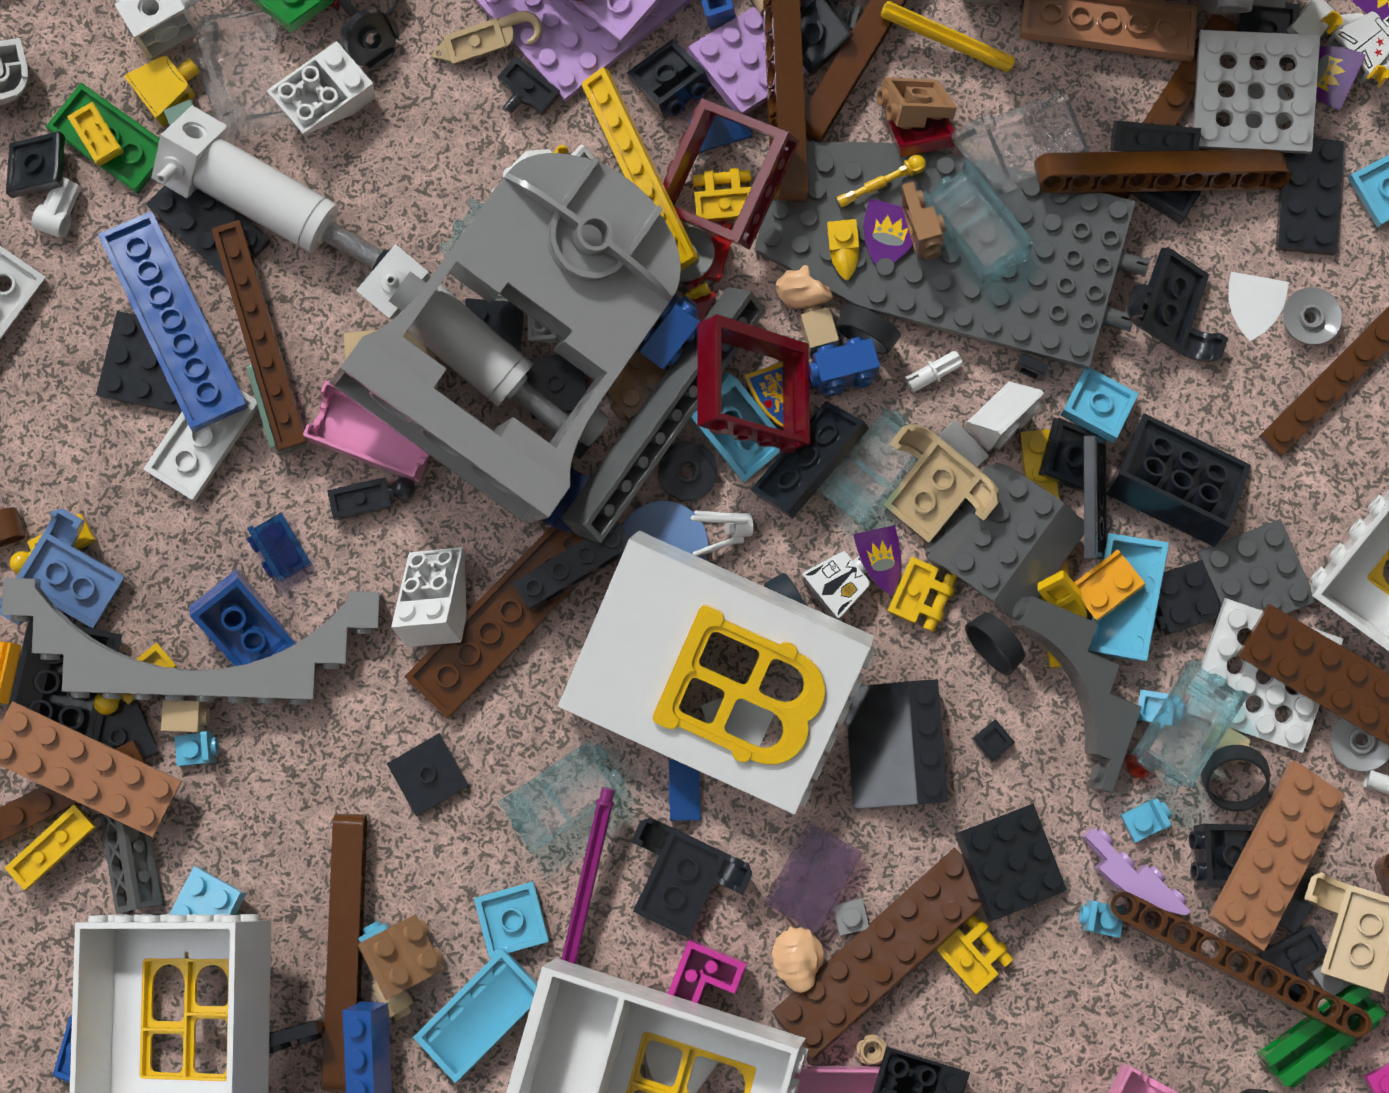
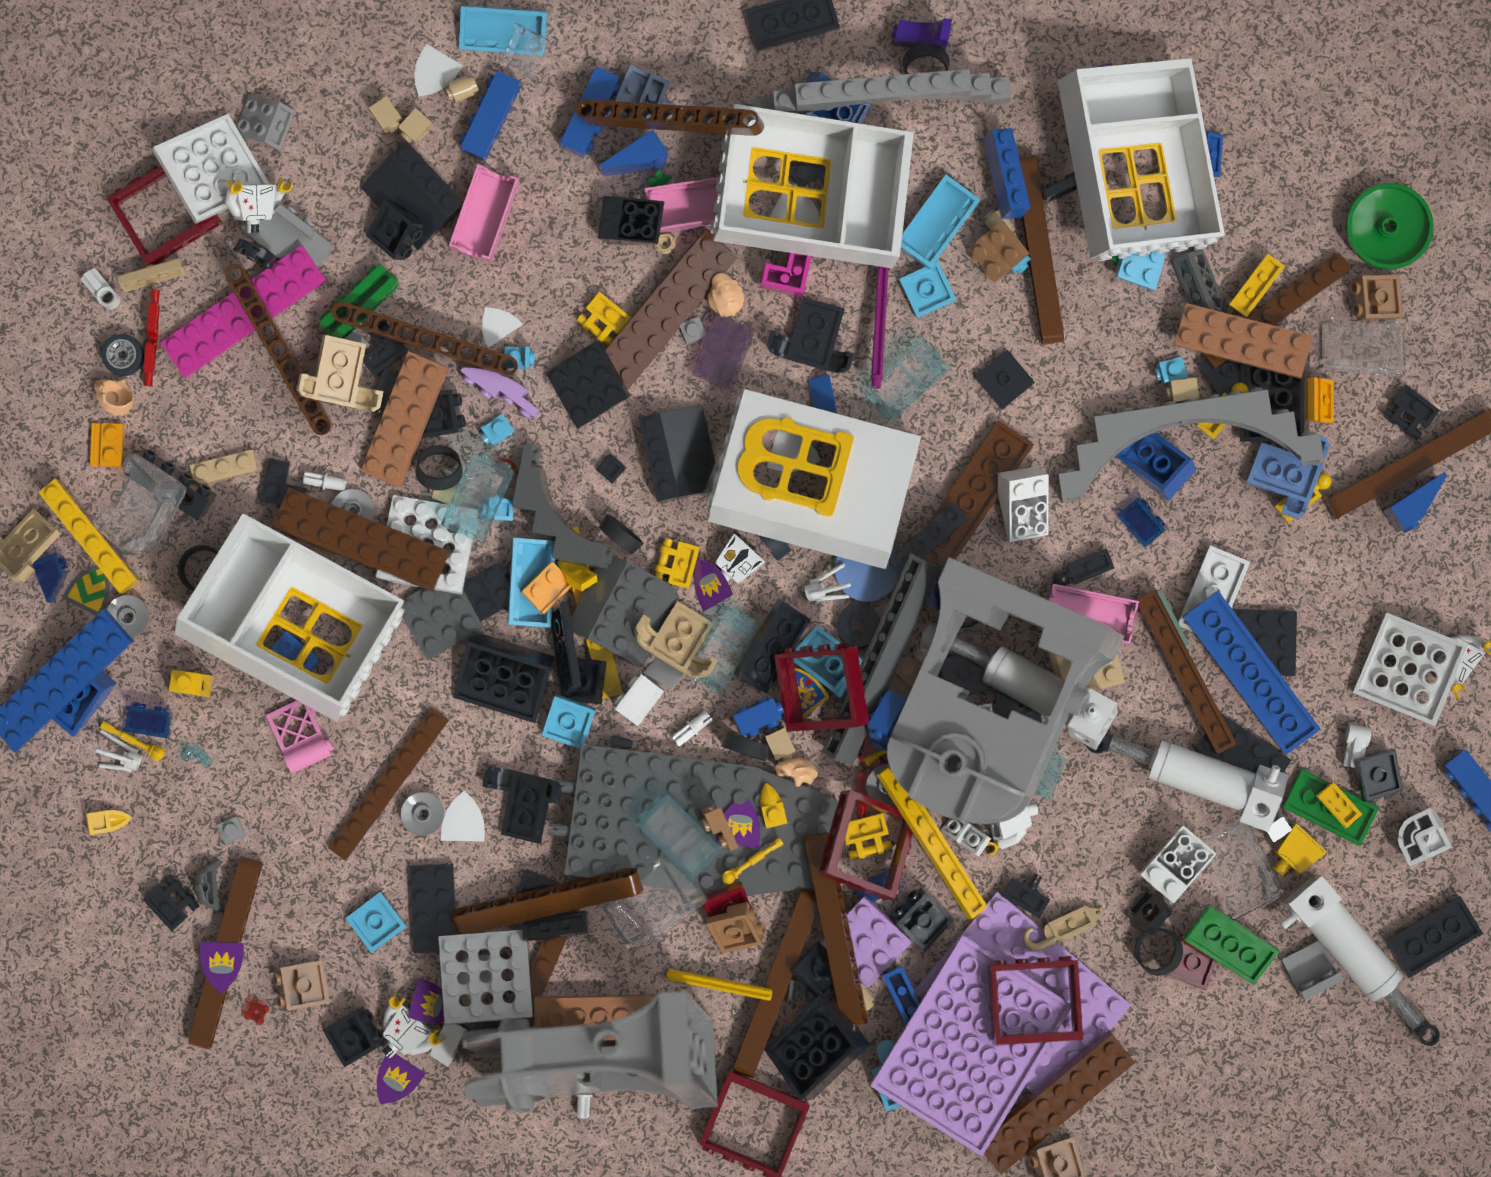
camera: 170 degrees right, 5 degrees up
(1124, 971) = (497, 325): none -> white sticker

